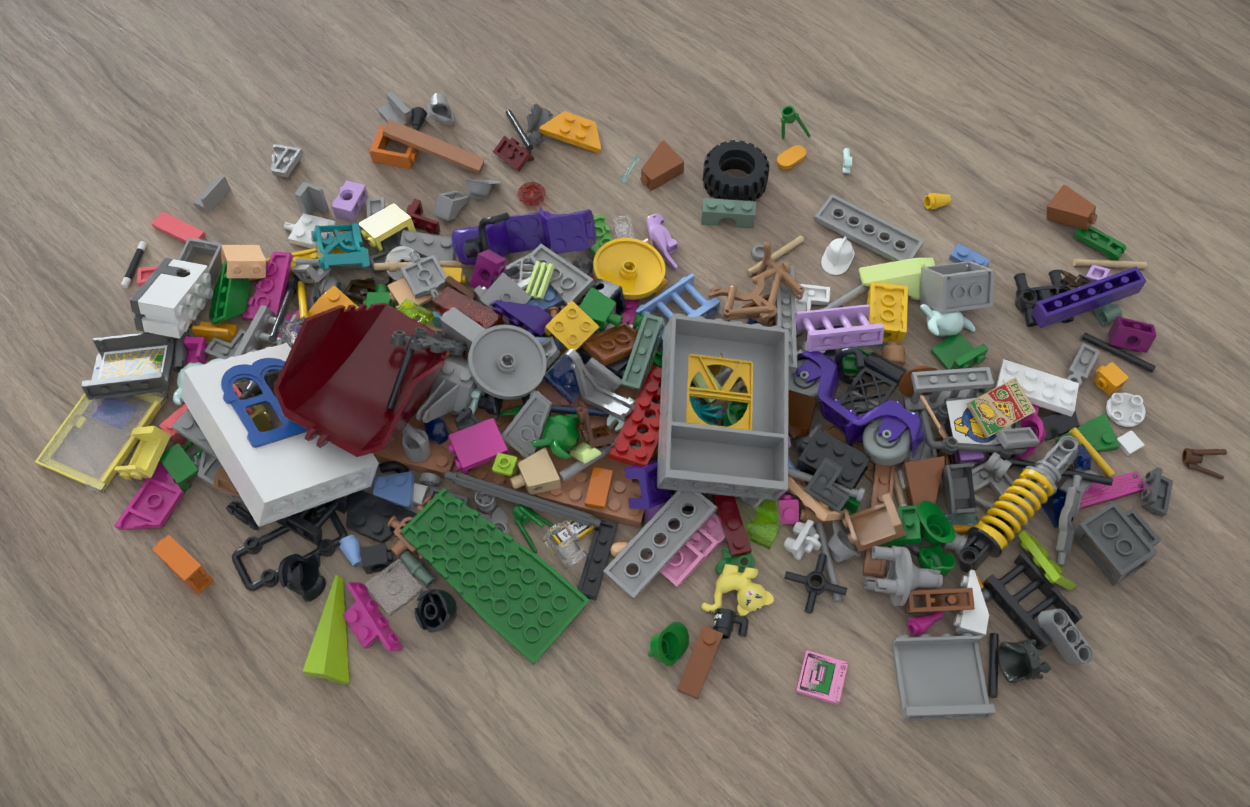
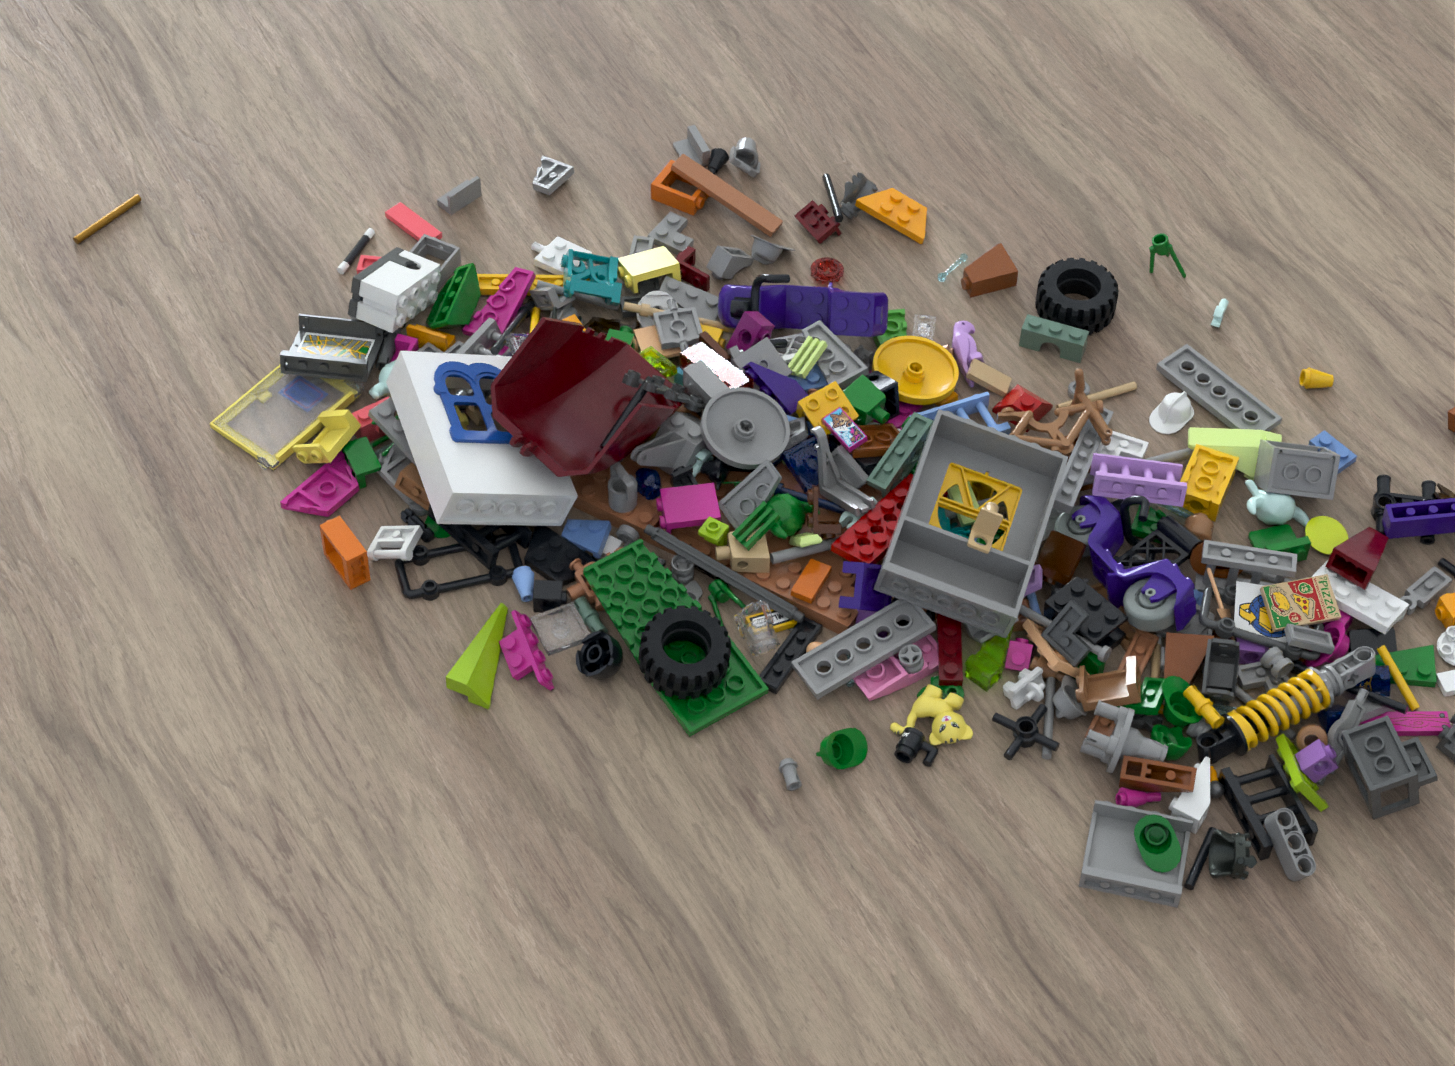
camera: 15 degrees right, 10 degrees down
(226, 535) = (394, 537): none -> white plate
(244, 261) = (480, 270): light nougat panel -> none
(302, 576) = (466, 593): black helmet -> none
(310, 198) = (571, 221): light grey panel -> none
(349, 201) = (614, 234): lavender brick -> none
(393, 466) = (589, 512): black arm -> none
(394, 192) = (669, 234): none -> light grey plate
(510, 564) = (690, 626): none -> black tyre
(534, 450) = (752, 524): none -> green tile
(591, 343) = (844, 429): none -> tile
(630, 679) = (788, 768): none -> light grey pin
(687, 259) = (988, 377): none -> tan tile
(700, 662) = (872, 773): dark orange slope -> none
(701, 536) = (906, 656): none -> light grey wheel
(719, 275) = (1024, 400): none -> red slope
(741, 414) = (985, 527): none -> tan bracket
(791, 157) = (1153, 295): light orange tile -> none
(822, 677) = (1002, 823): bright pink tile -> none
(956, 525) = (1203, 707): none -> yellow pin
(959, 666) = (1157, 843): none -> green piece
(991, 334) = (1325, 533): none -> neon yellow piece
(1031, 353) = (1358, 556): none -> dark red slope
(1046, 528) = (1309, 734): none -> medium nougat head
(1060, 549) = (1317, 760): none -> medium lavender brick

